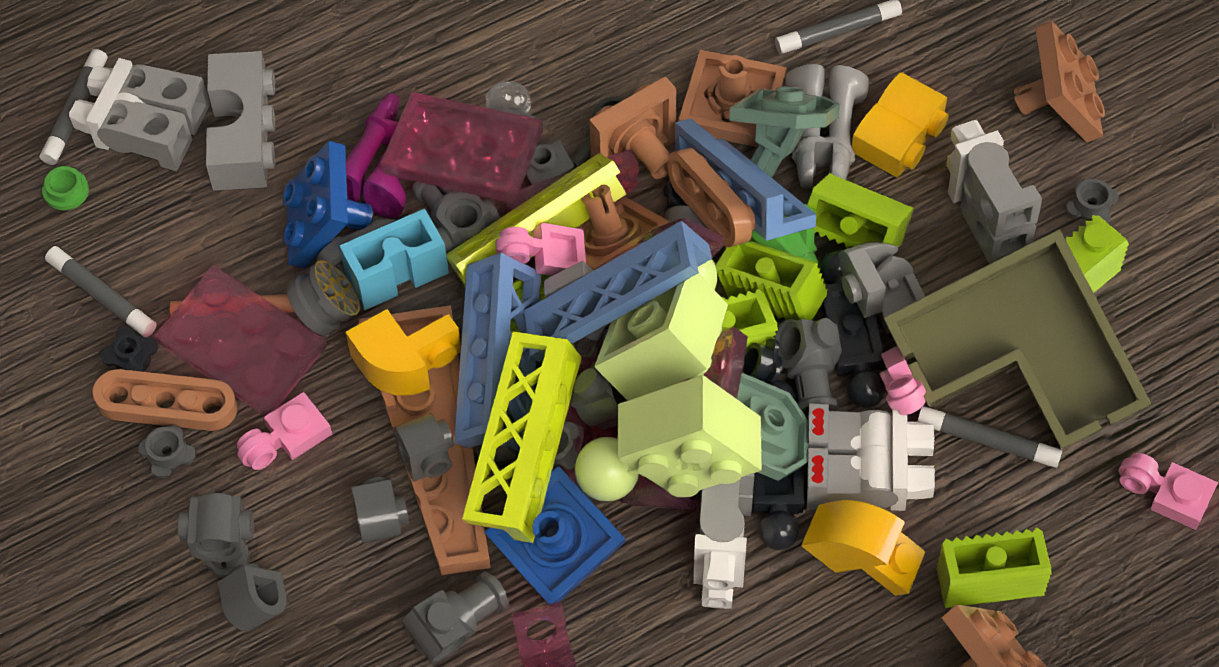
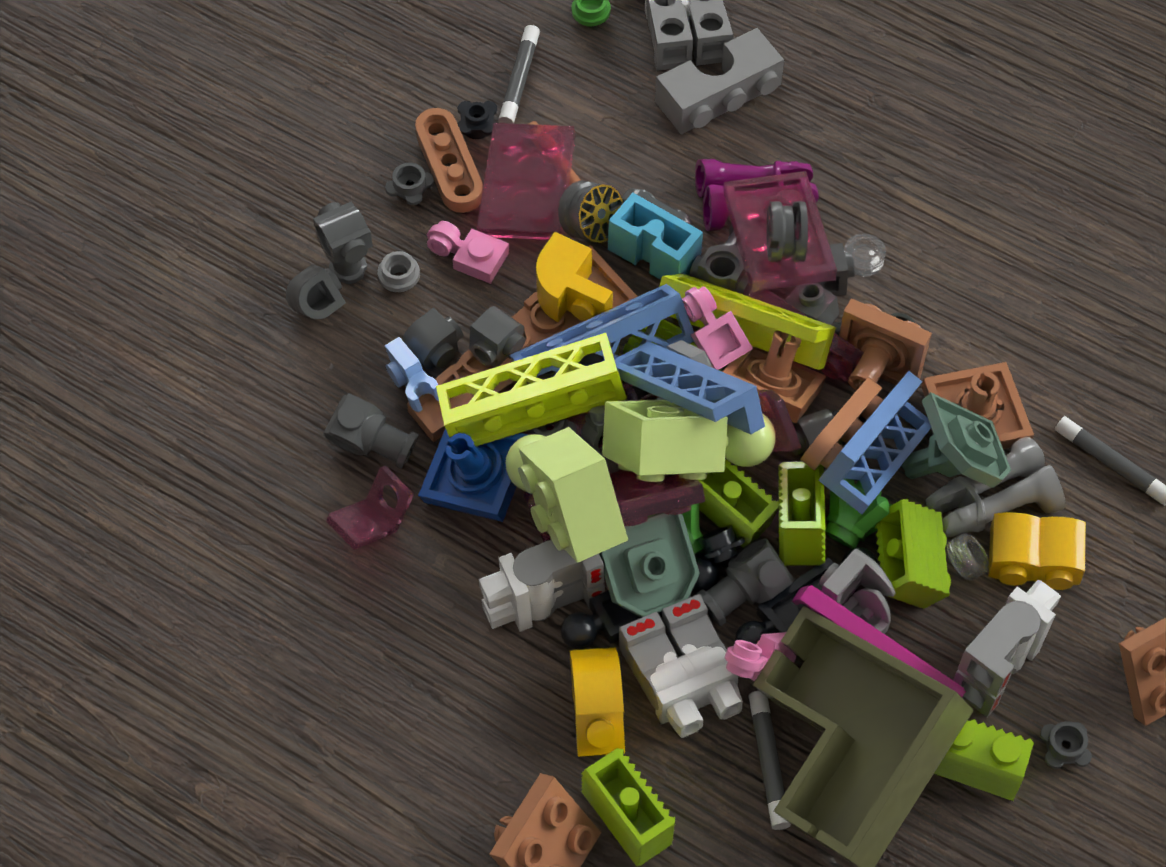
camera: 60 degrees right, 0 degrees up
(267, 497) = (395, 263): none -> light grey plate
(320, 205) = (670, 168): blue plate -> none
(404, 547) = (407, 371): none -> light blue plate
(488, 134) = (786, 231): none -> dark grey wheel
(877, 179) = (967, 556): none -> clear tile
(892, 301) = (833, 611): none -> dark pink tile

